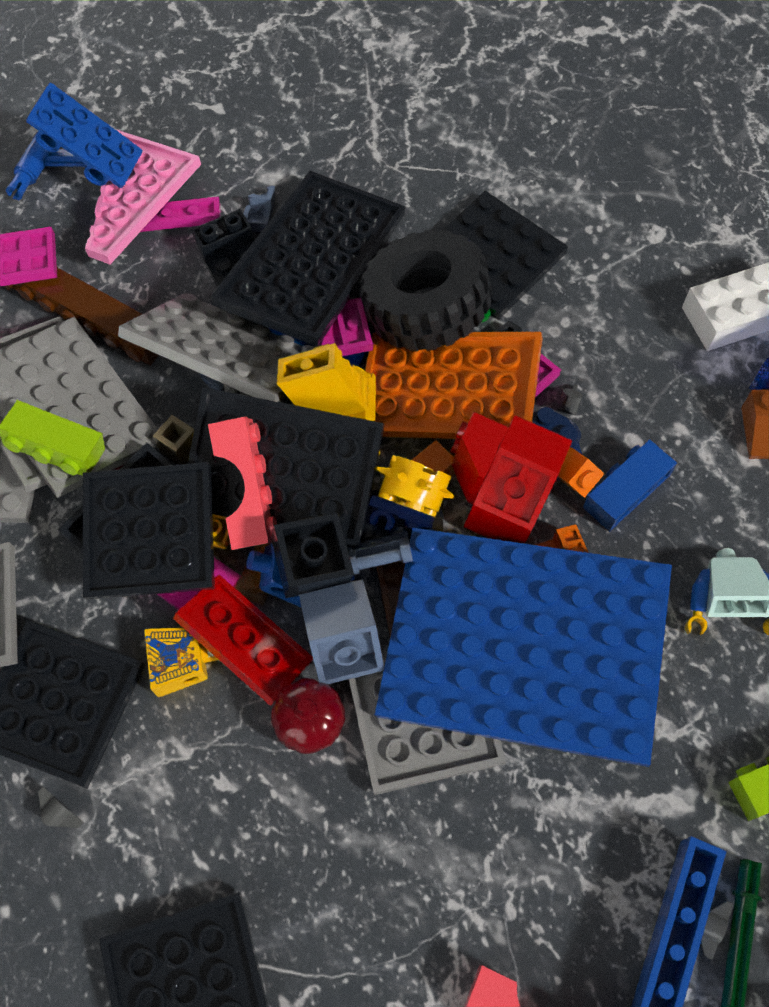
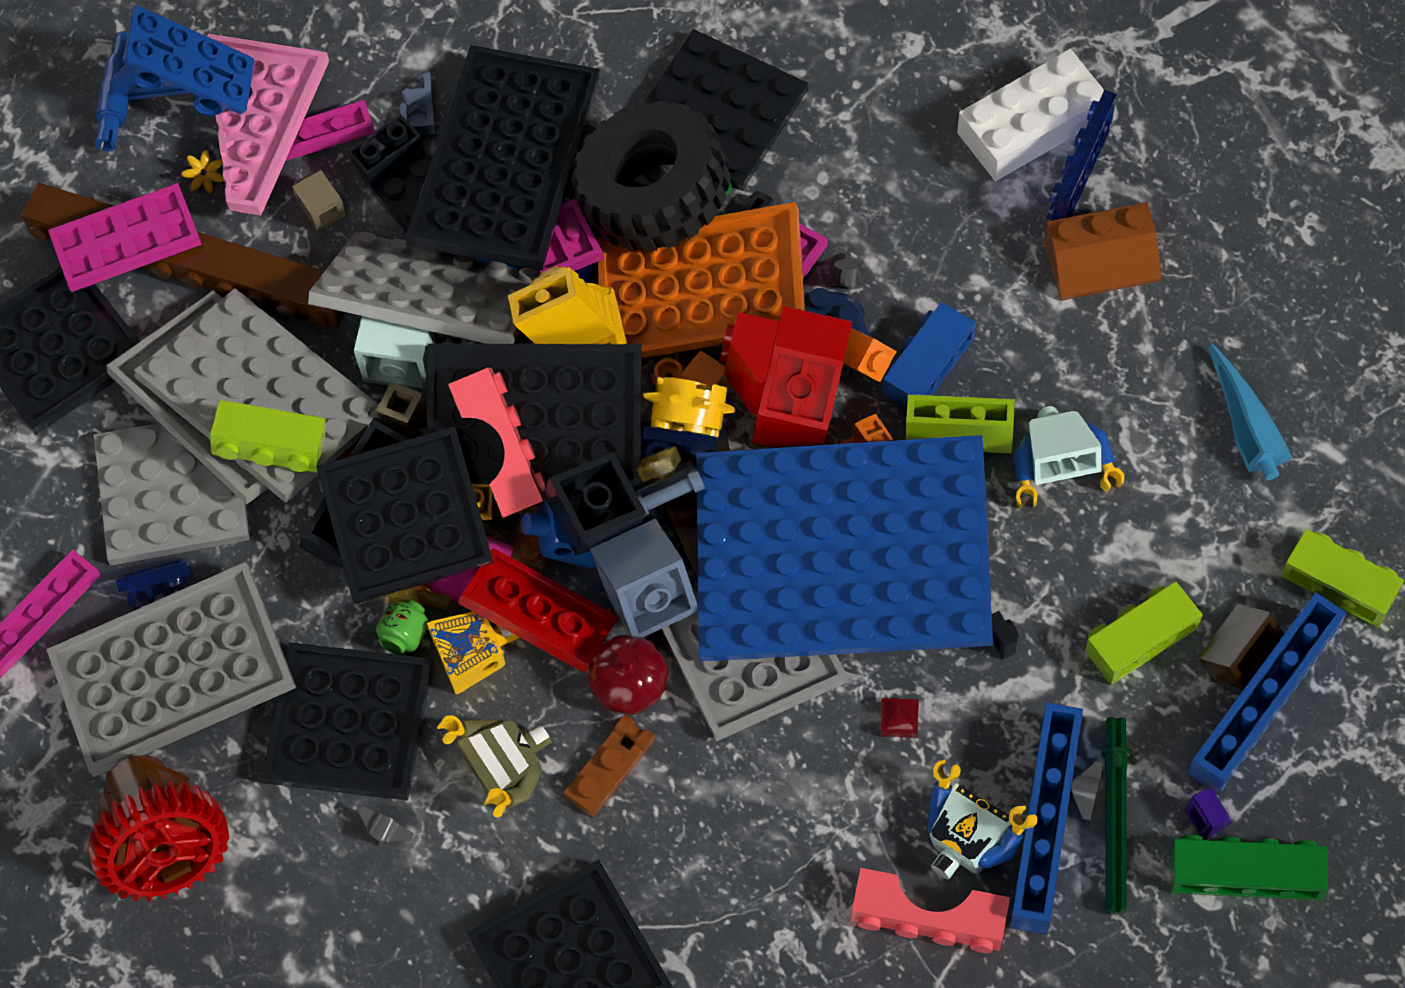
camera: 10 degrees left, 0 degrees up
(78, 222) = (208, 168): none -> yellow plant
(125, 627) = (402, 627): none -> bright green head
(150, 602) = (421, 595): none -> clear yellow cone
(162, 264) = (318, 200): none -> dark tan brick
(175, 771) = (499, 757): none -> torso
(177, 389) = (393, 353): none -> light aqua brick
(272, 798) = (609, 766): none -> dark orange plate
(378, 531) = (660, 465): none -> clear yellow plate
(405, 447) = (665, 367): none -> orange plate
(546, 810) = (899, 717): none -> dark red tile
(596, 947) = (969, 828): none -> torso
(651, 543) = (962, 416): none -> lime brick
(660, 753) = (1004, 635): none -> black plate

